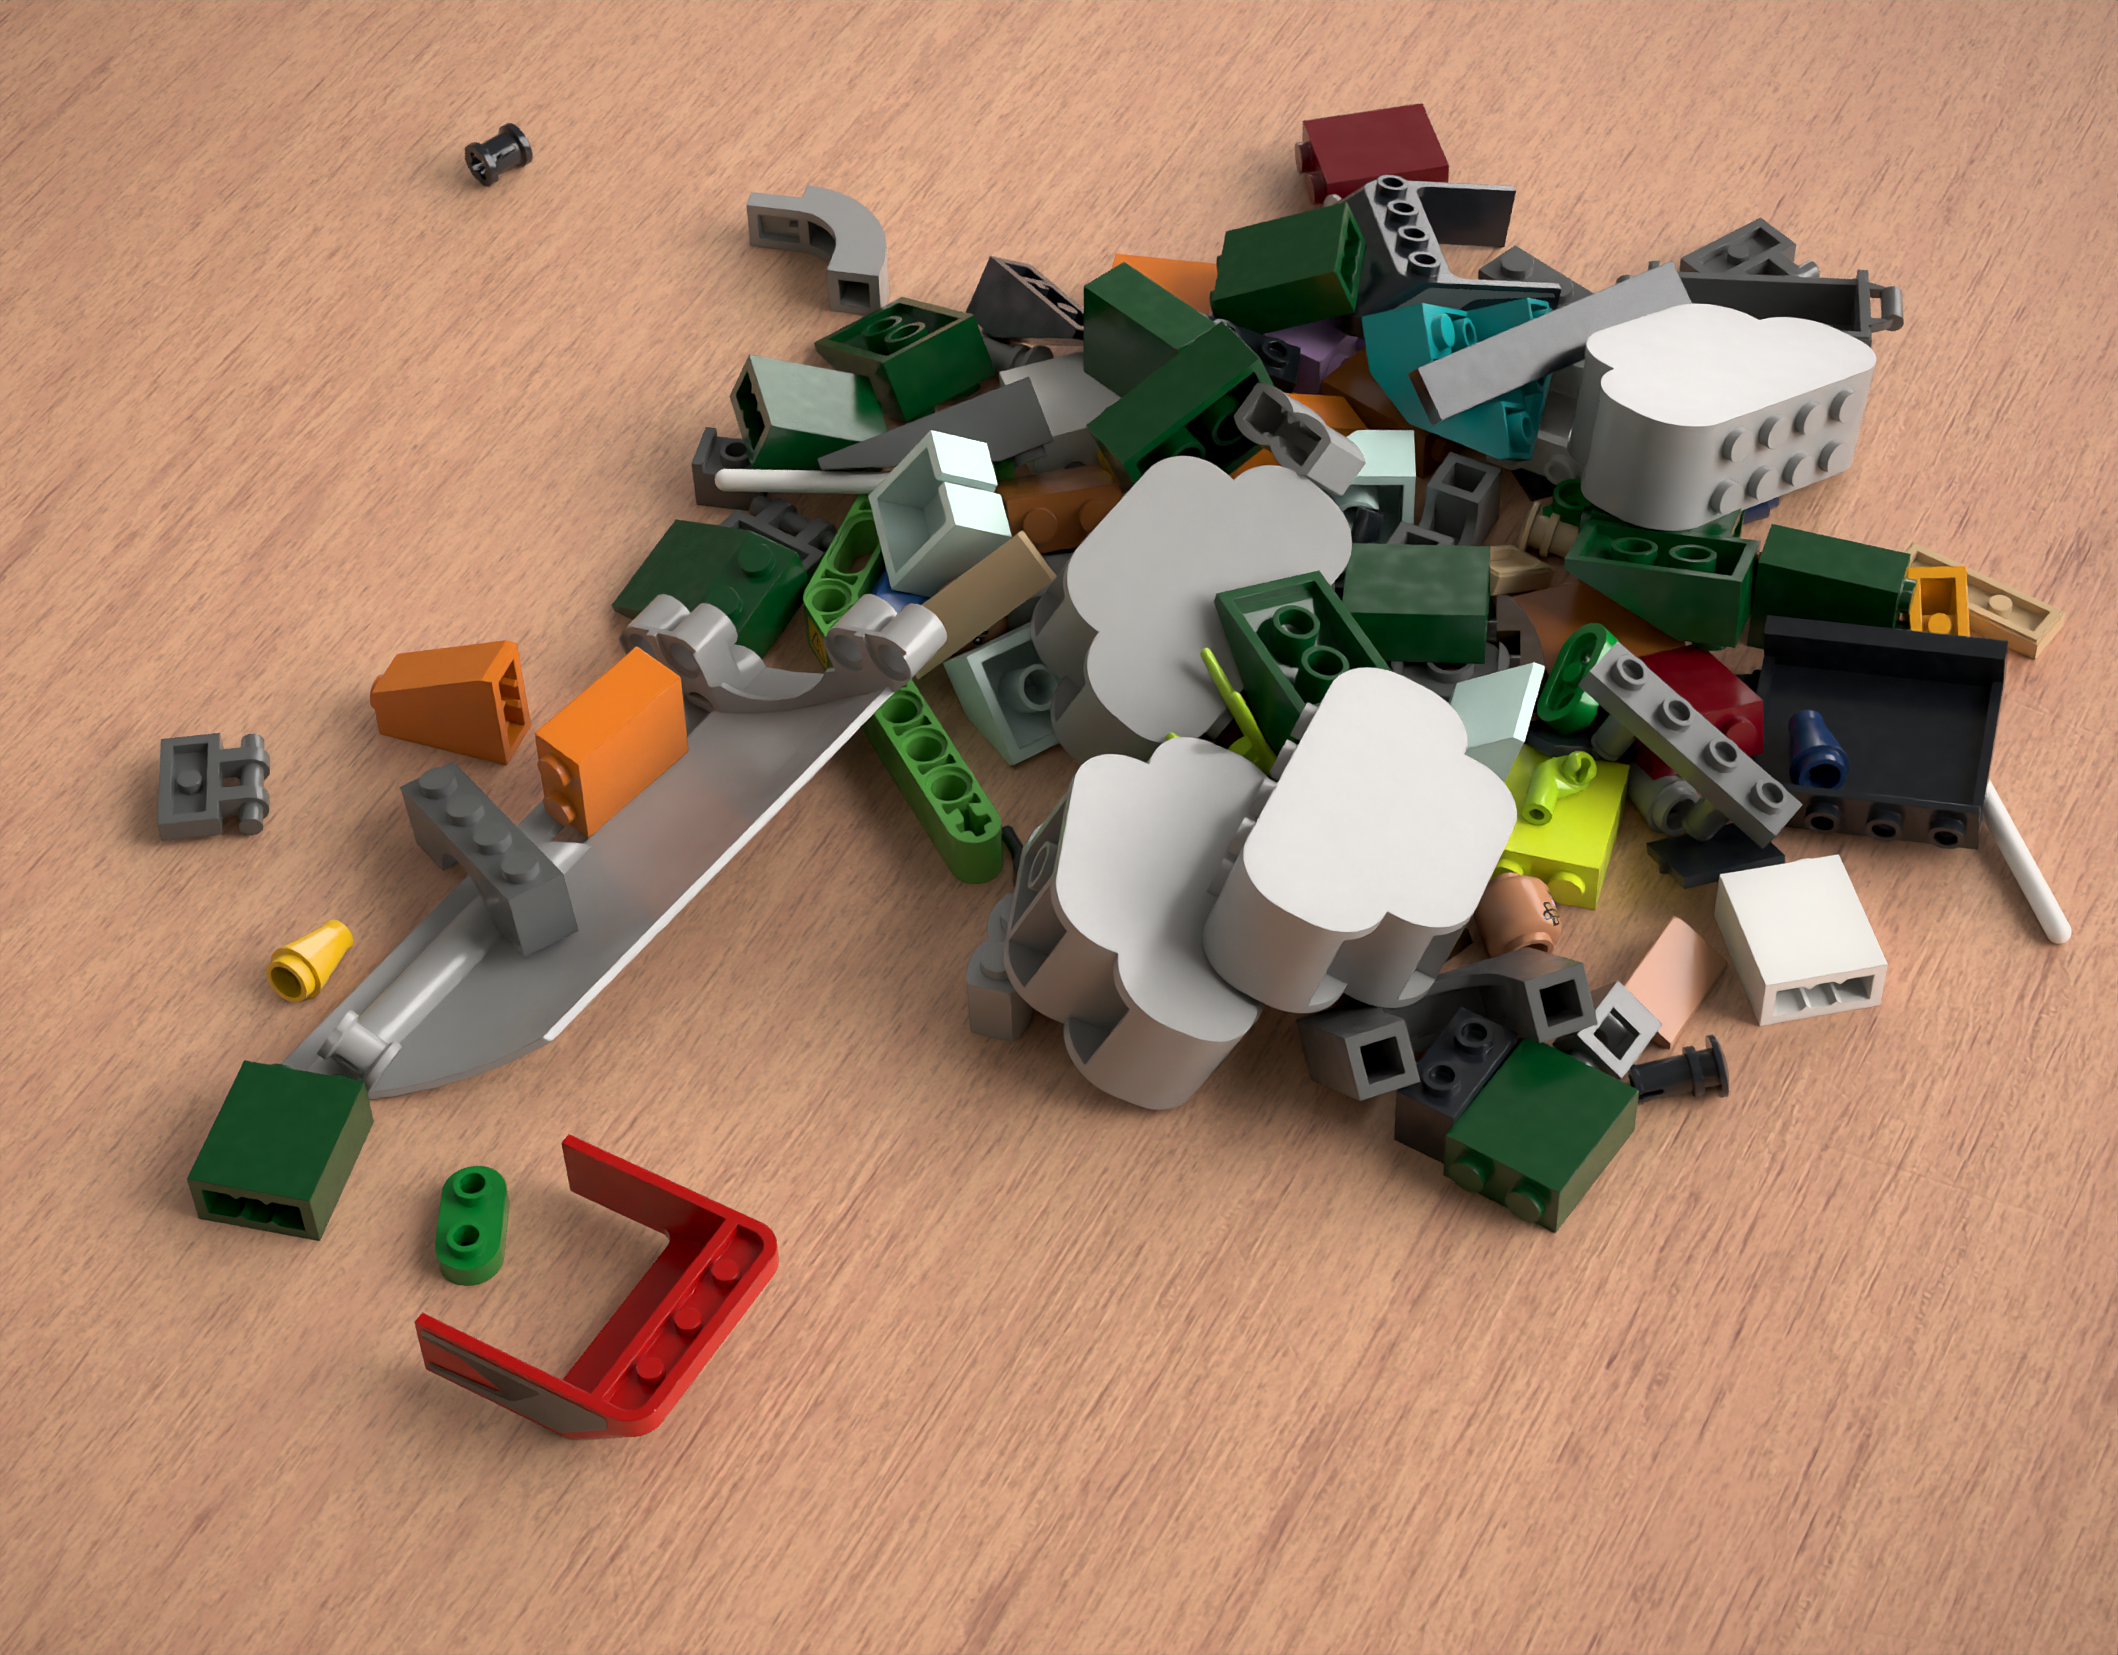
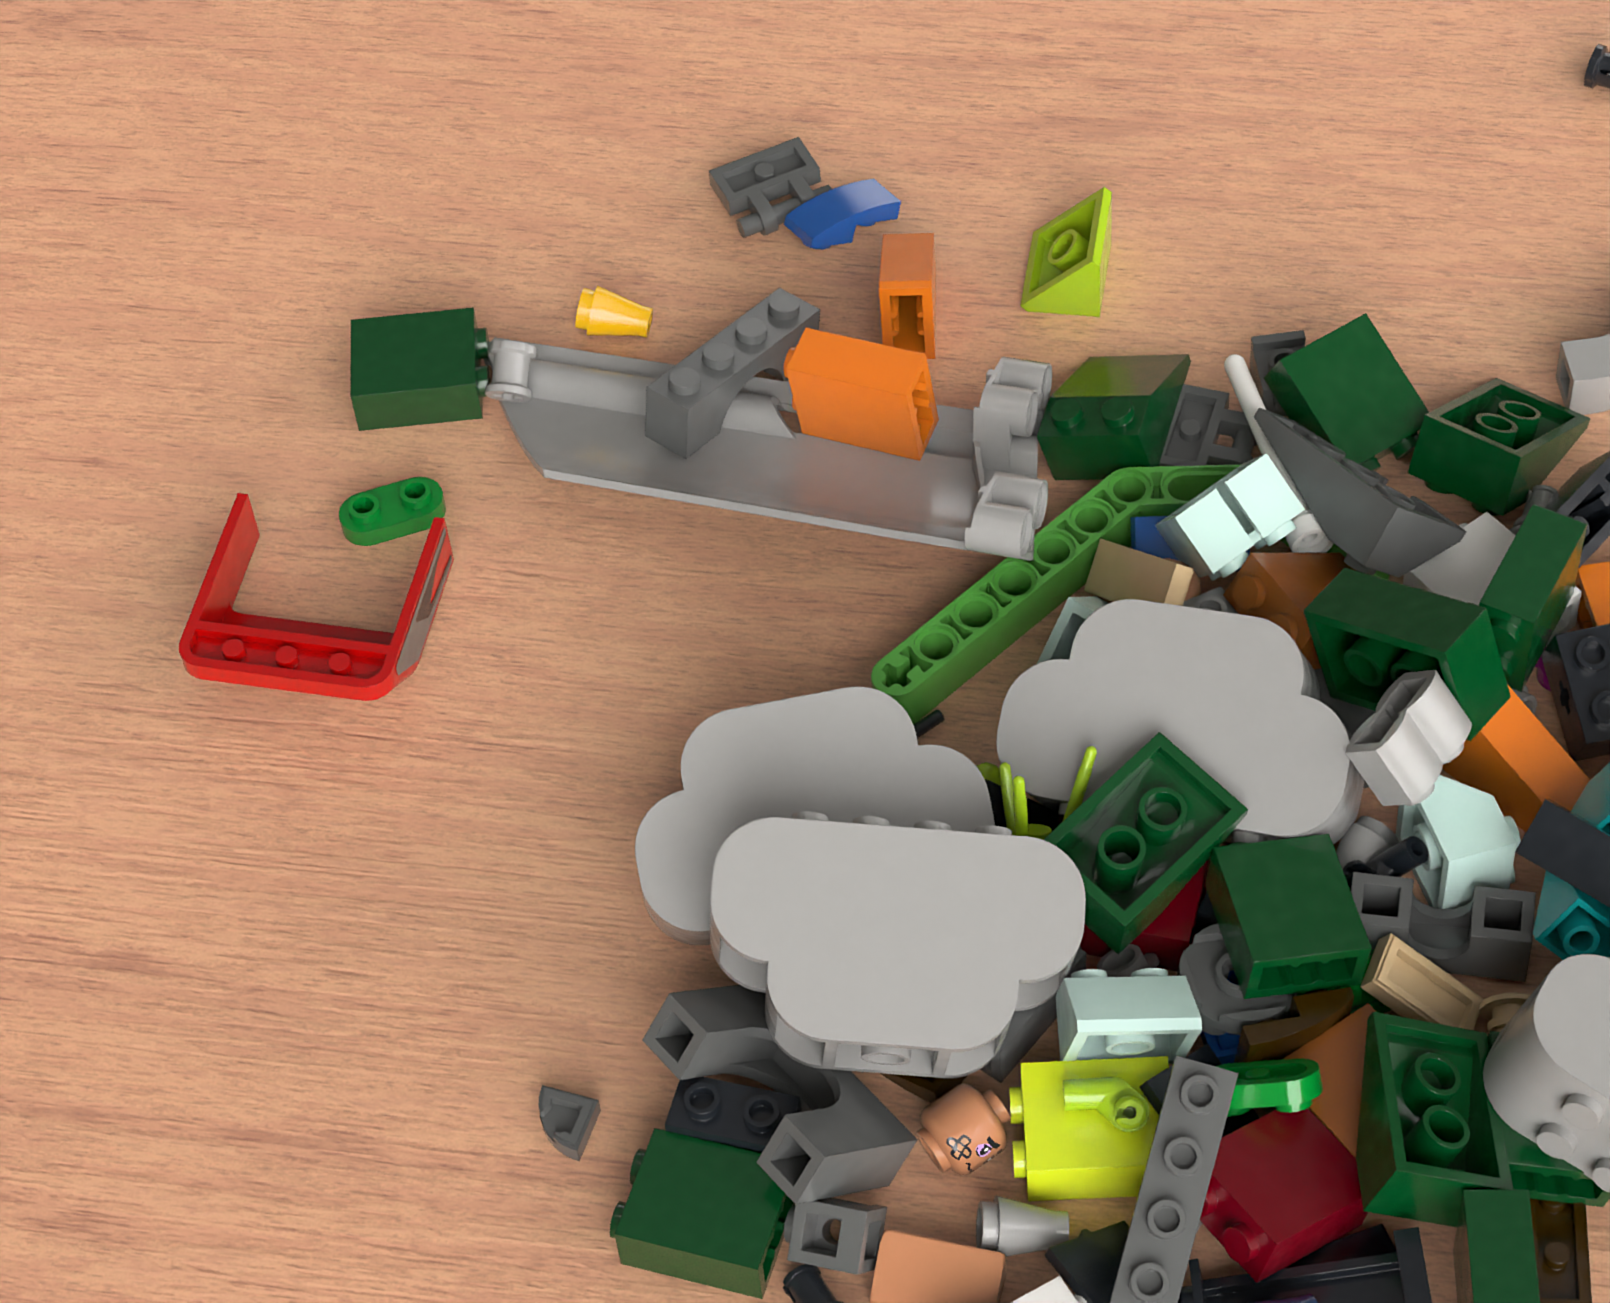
camera: 75 degrees right, 5 degrees up
(295, 735) = (835, 213): none -> blue slope
(485, 570) = (1071, 260): none -> lime slope
(1375, 1236) = (567, 1120): none -> dark grey tile
(1636, 912) = (1019, 1227): none -> light grey cone

